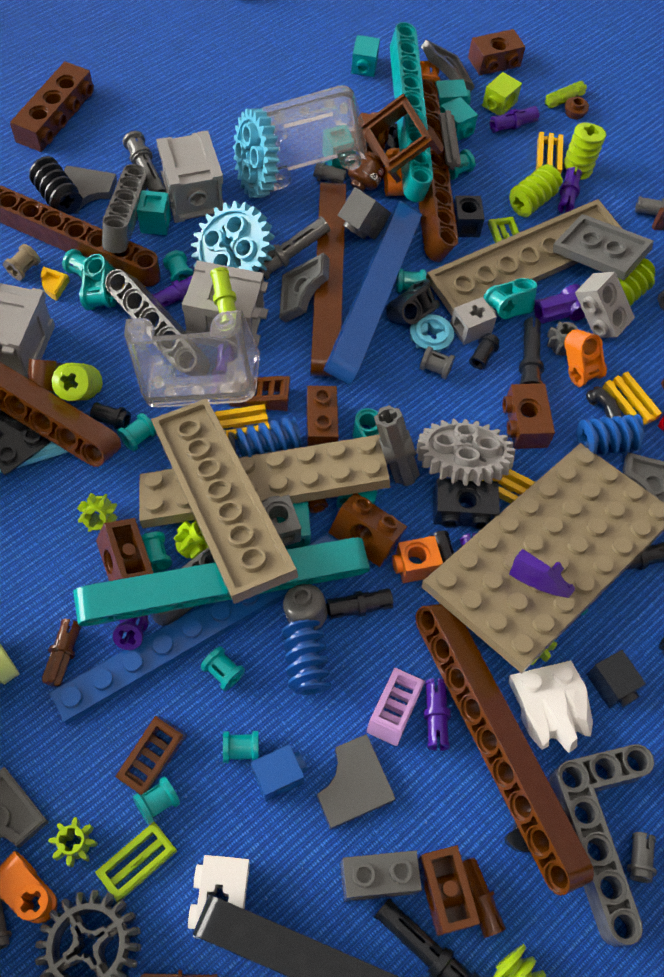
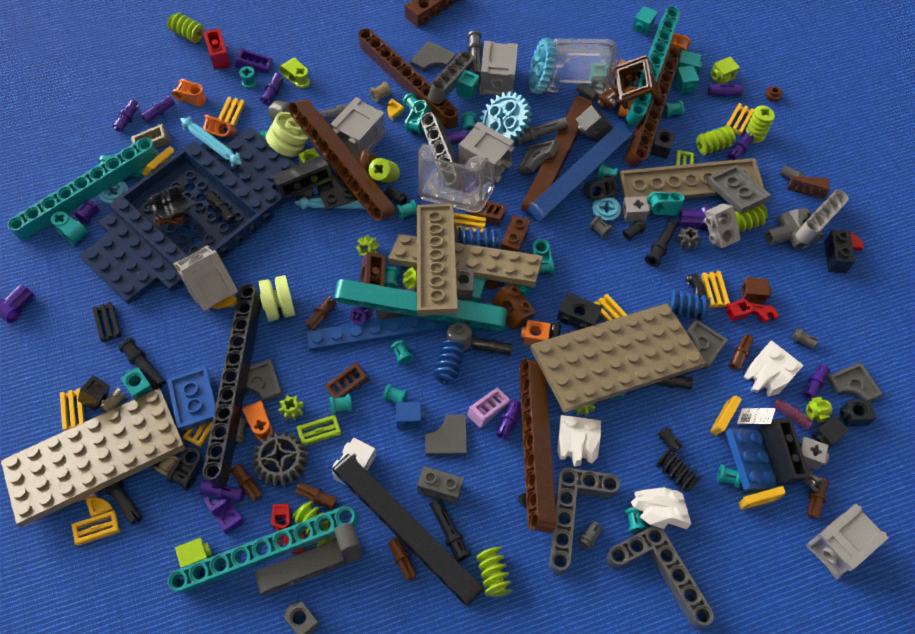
camera: 25 degrees right, 0 degrees up
(55, 185) = (416, 51): black piece -> none
(223, 296) = (484, 144): lime pin -> none
(397, 445) = (549, 265): dark grey piece -> none
(447, 63) = (697, 40): dark grey tile -> none
(447, 890) = (472, 505): reddish brown brick -> none
(449, 140) = (671, 91): dark grey axle -> none
(465, 452) = (591, 283): light grey gear -> none
(488, 914) = (490, 518): reddish brown axle -> none
(496, 52) = (735, 41): reddish brown brick -> none
(531, 401) = (642, 286): reddish brown brick -> none
(540, 576) = (597, 364): dark purple slope -> none
(562, 95) = (767, 82): lime axle -> none
(584, 357) = (694, 256): orange piece -> none
(616, 680) = (621, 439): black brick -> none

